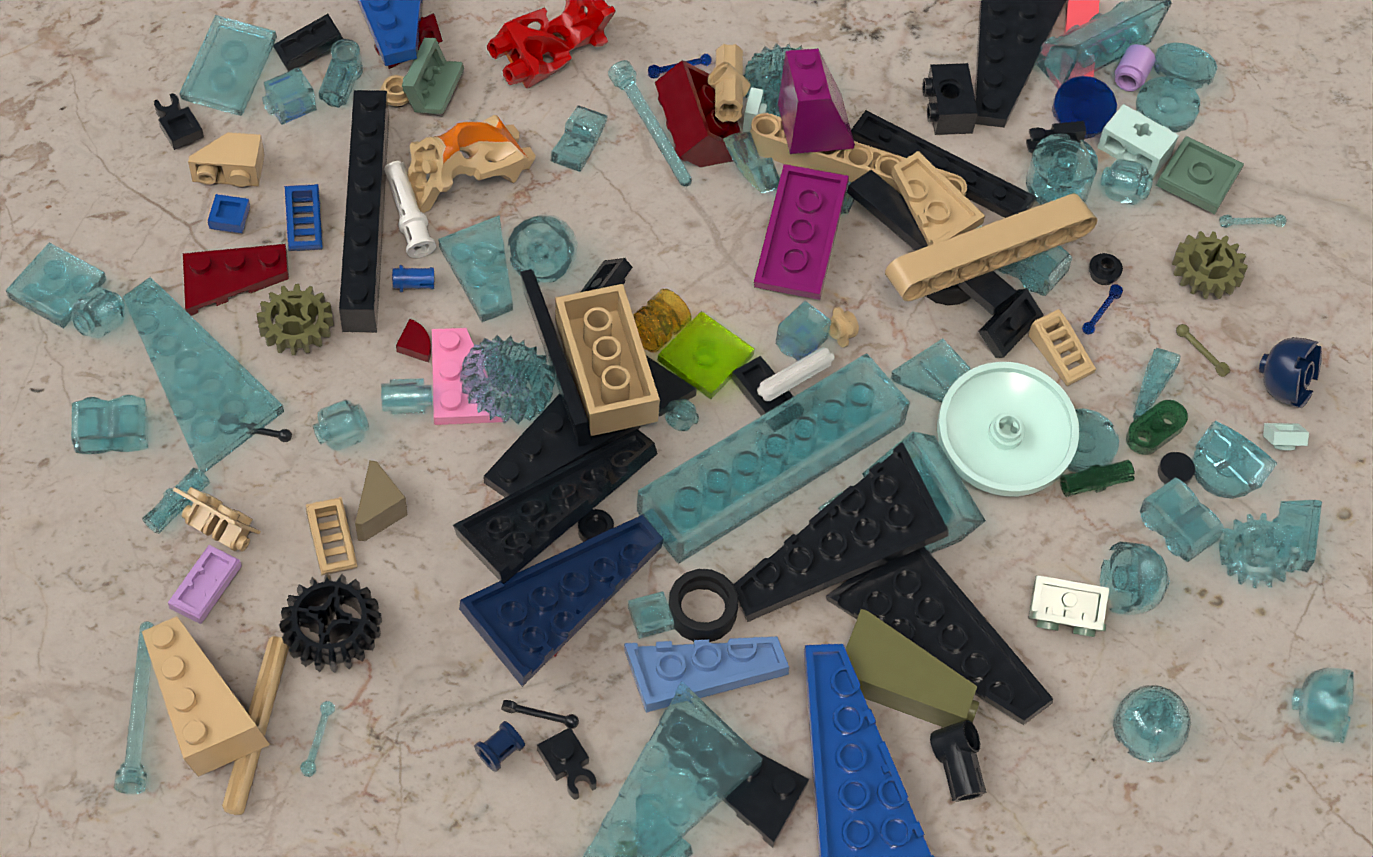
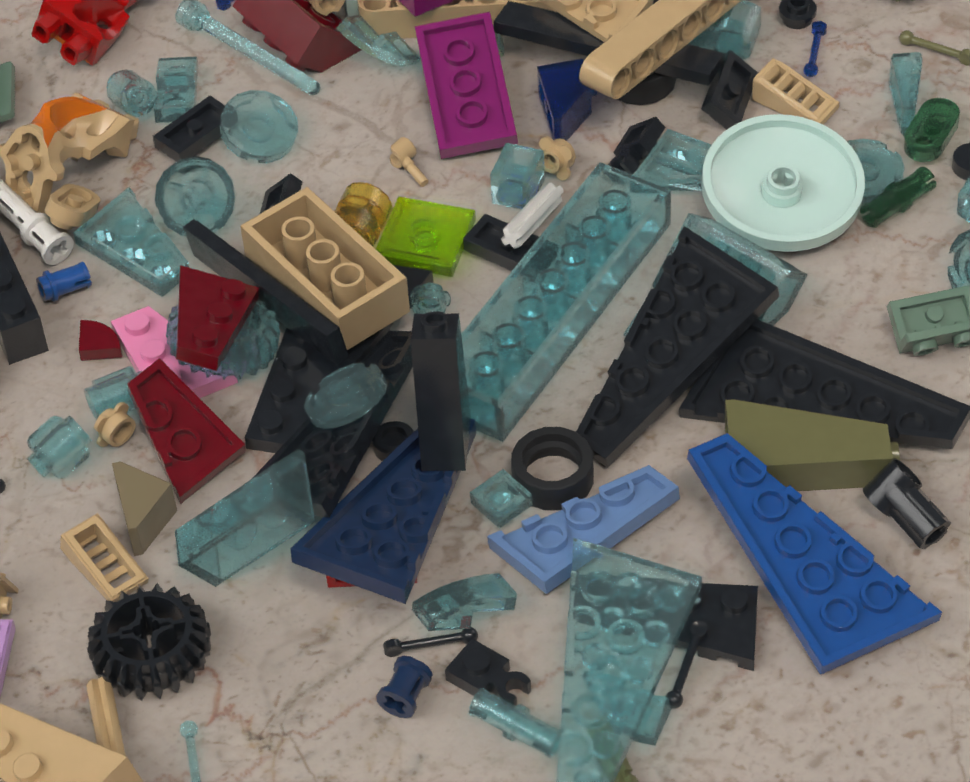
camera: 15 degrees left, 10 degrees down
(391, 424) = (114, 426): none -> tan plate
(439, 452) = (183, 429): none -> dark red wing
(444, 556) = (247, 522): none -> clear light blue slope
(447, 215) = (71, 206): none -> tan plate
(497, 366) = (210, 316): none -> dark red wing
(540, 129) = (131, 93): none -> clear light blue brick
(567, 813) = (515, 722): none -> clear light blue pin
(571, 478) = (345, 395): none -> clear light blue tile
(572, 691) = (453, 604): none -> clear light blue slope
(575, 182) = (191, 130): none -> black plate
(624, 201) = (258, 126): none -> clear light blue tile
(630, 520) = (440, 391): none -> black slope
(724, 270) = (402, 154): none -> tan hand
(743, 799) = (698, 631): none -> black hinge
(871, 280) = (564, 97): none -> clear blue slope
(908, 342) = (637, 144): none -> black plate

